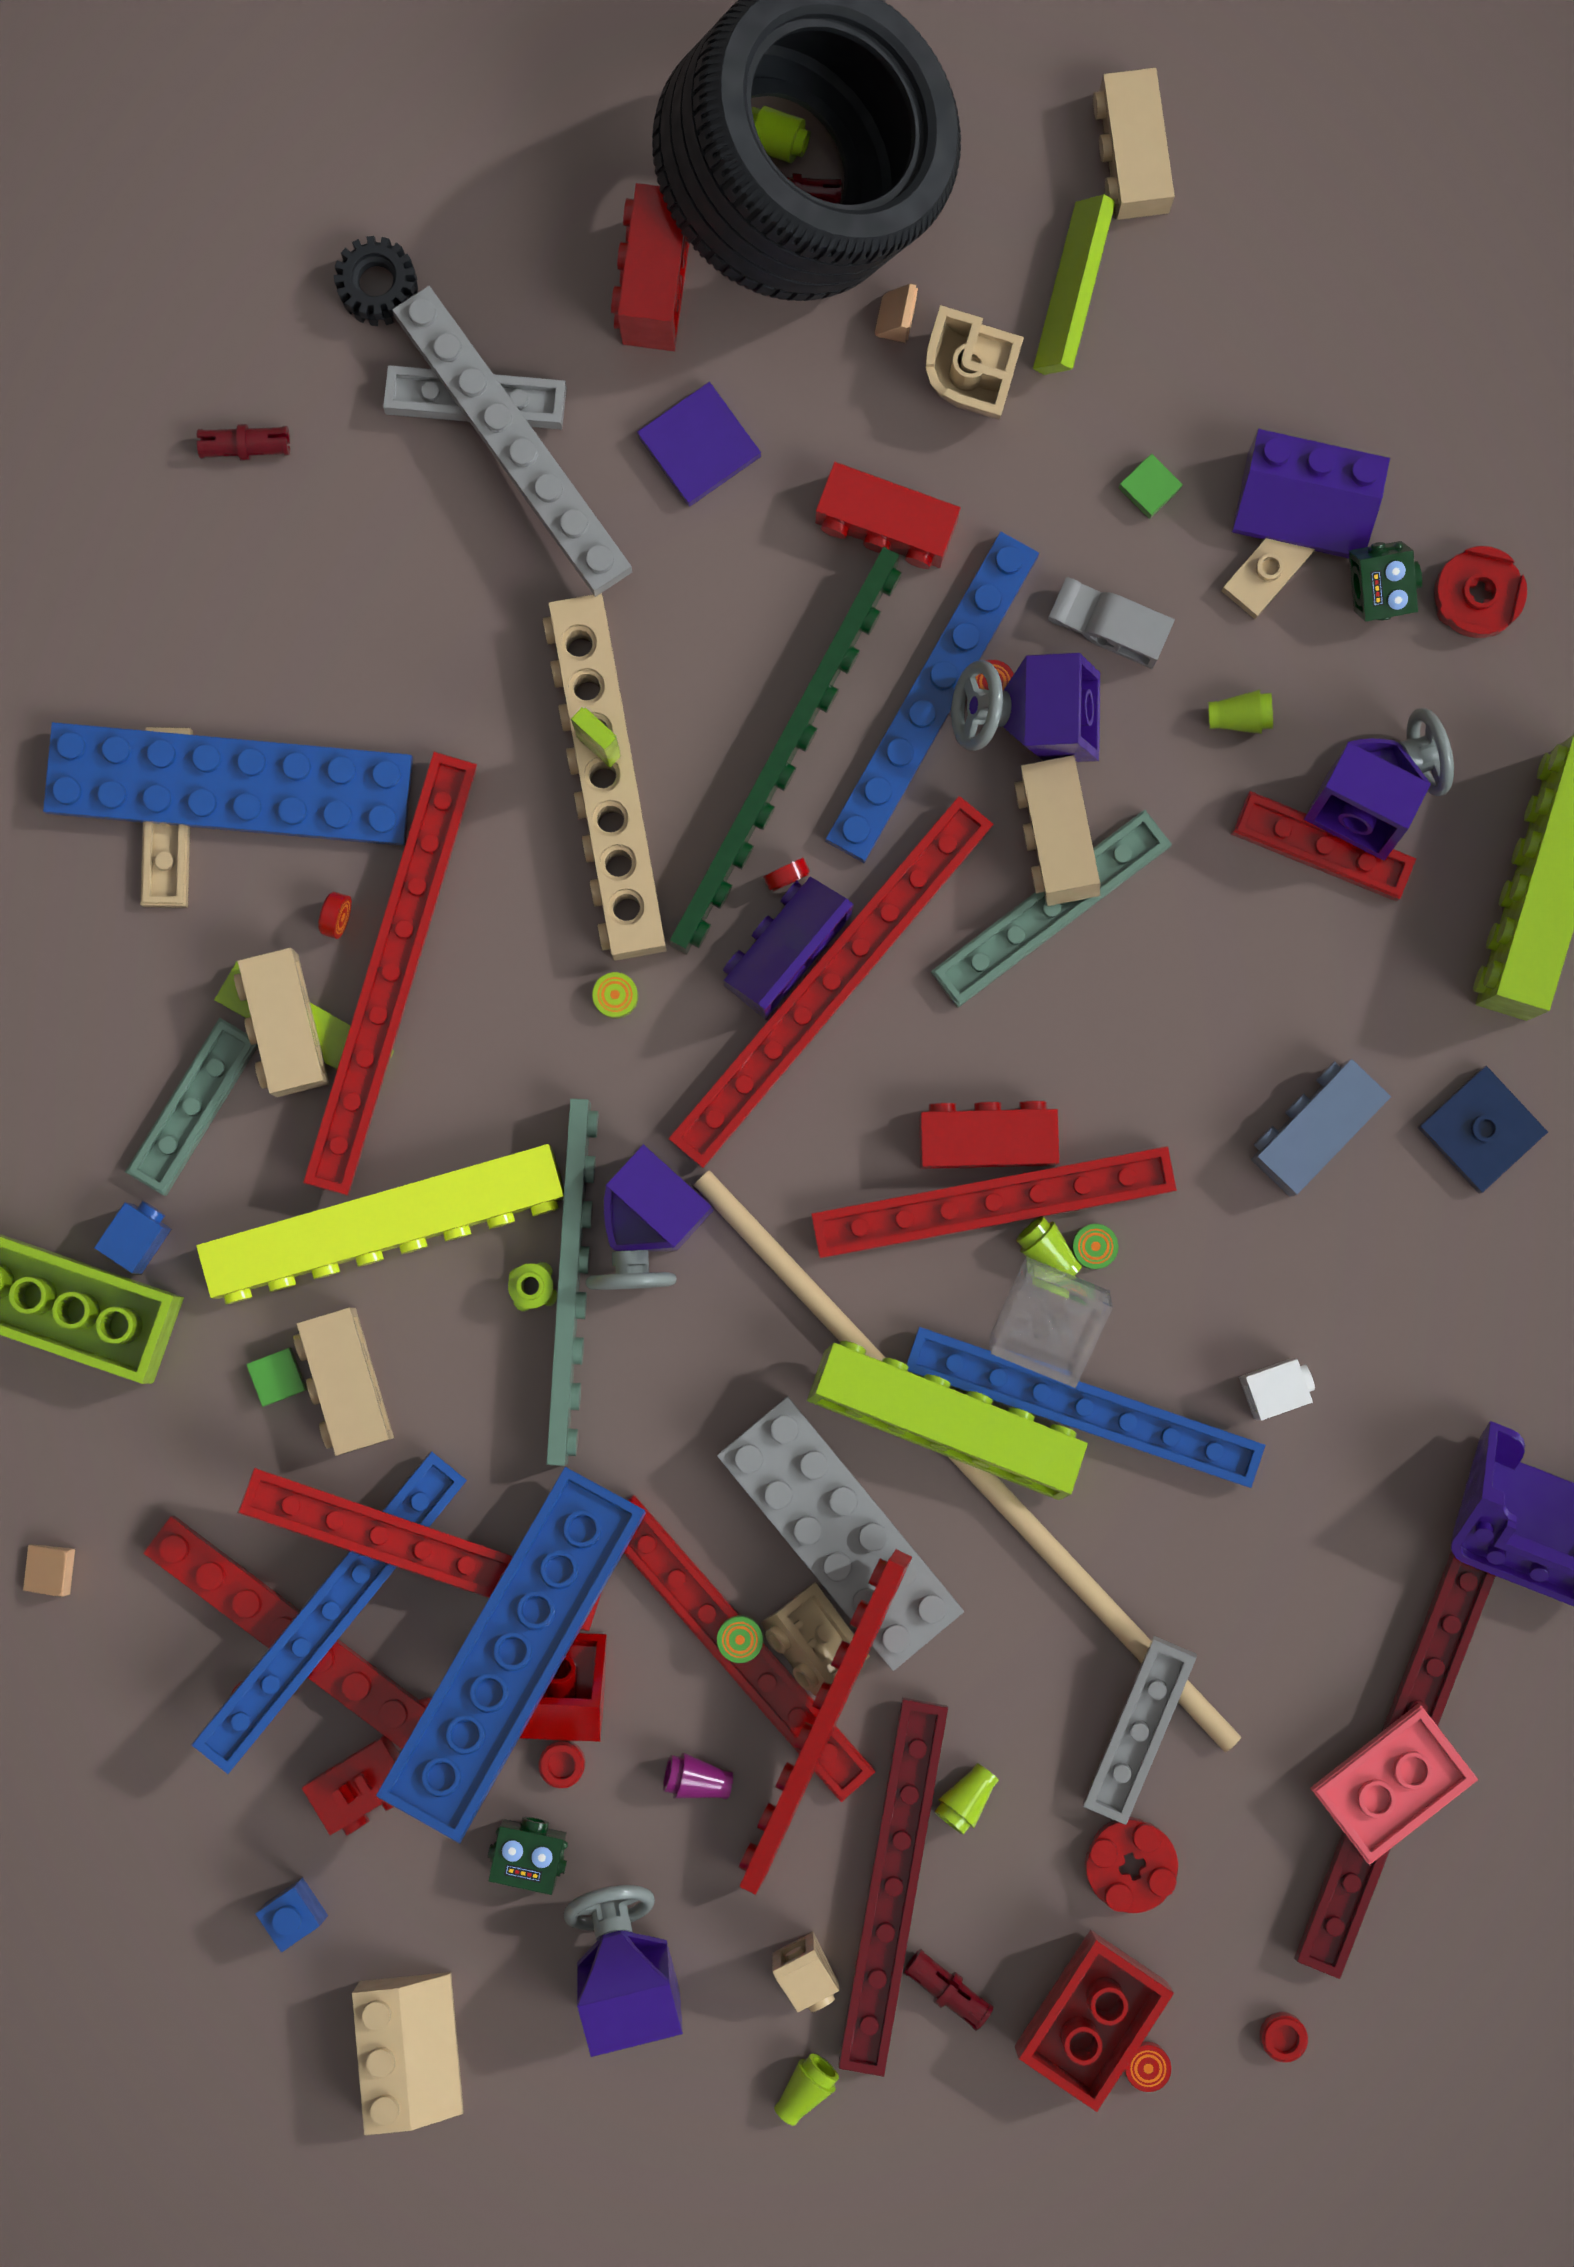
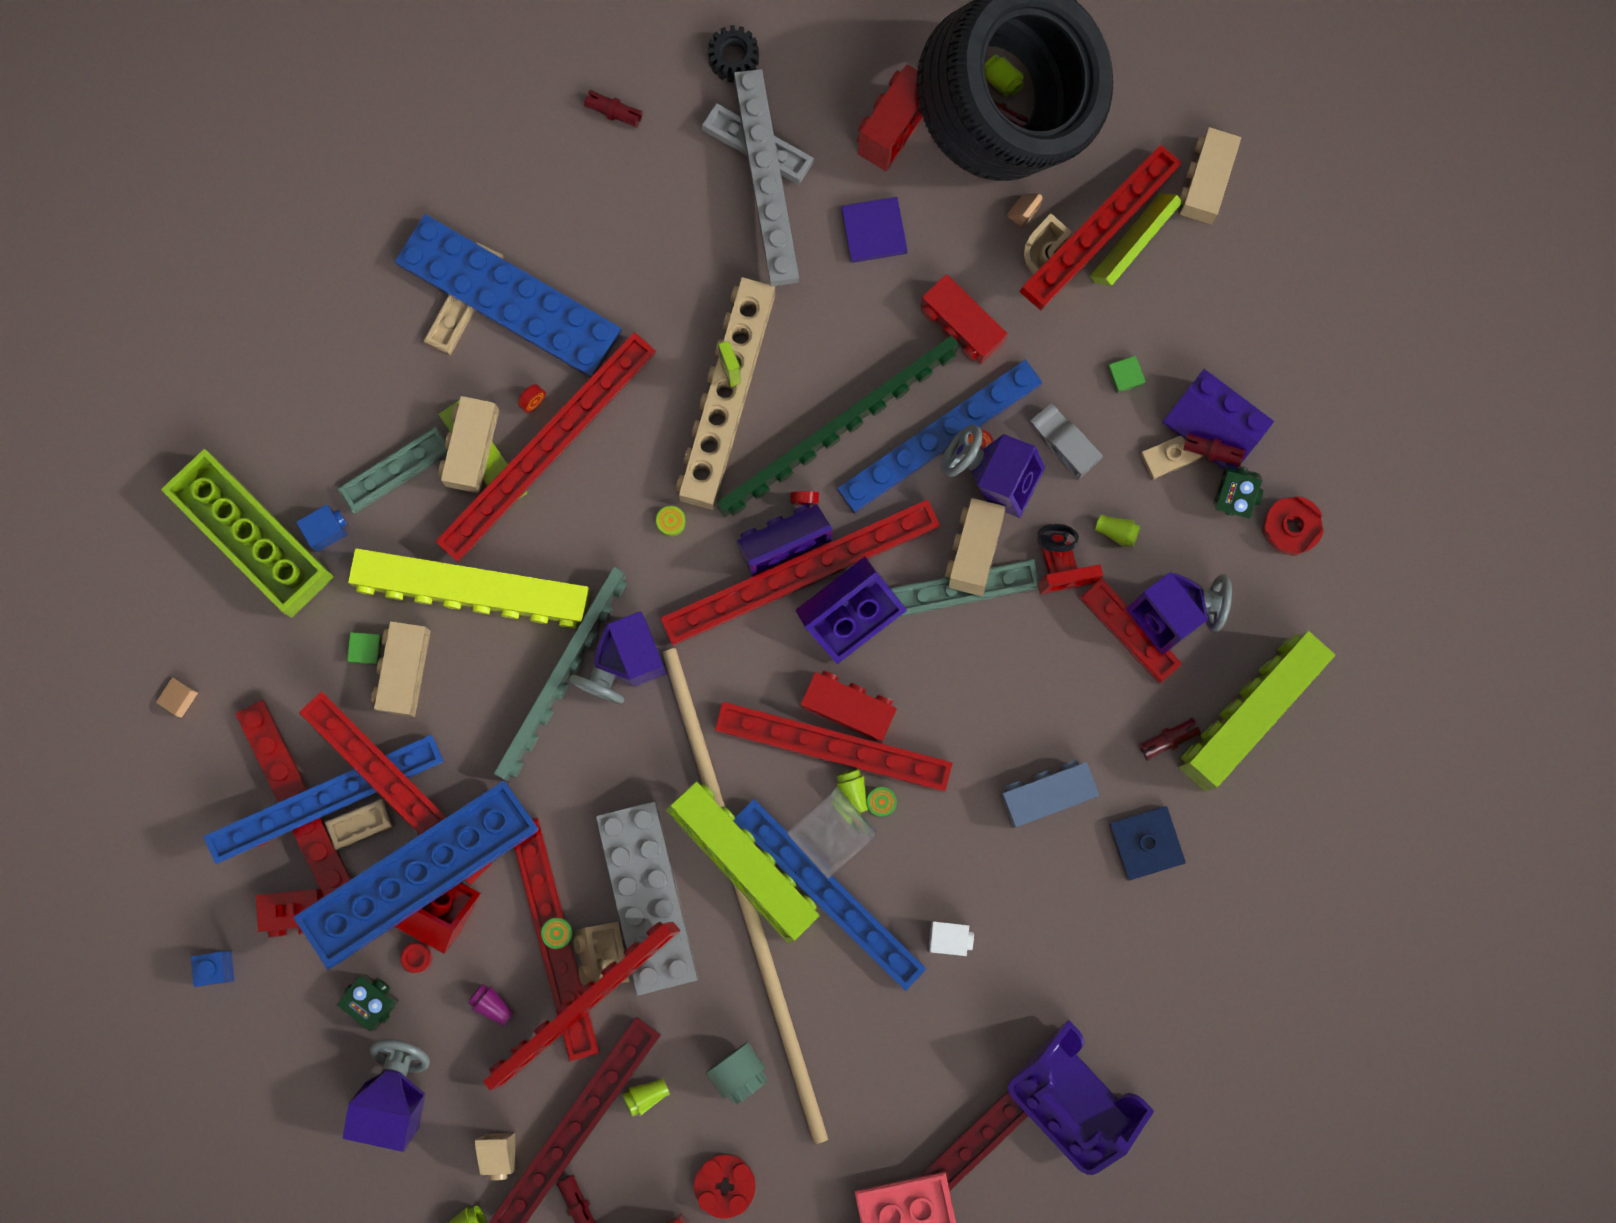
camera: 25 degrees right, 5 degrees down
(392, 1622) = (359, 824): none -> tan plate
(407, 2052) = (238, 1085): tan slope -> none
(544, 1296) = (544, 672): lime brick -> none
(927, 1002) = (850, 610): none -> dark purple slope
(1020, 293) = (1100, 227): none -> red plate
(1079, 1709) = (738, 1074): none -> sand green piece
(1140, 1730) = (768, 1104): light grey plate -> none
(1184, 795) = (1061, 561): none -> red piece
(1325, 537) = (1214, 449): none -> dark red pin
(1448, 971) = (1169, 739): none -> dark red pin

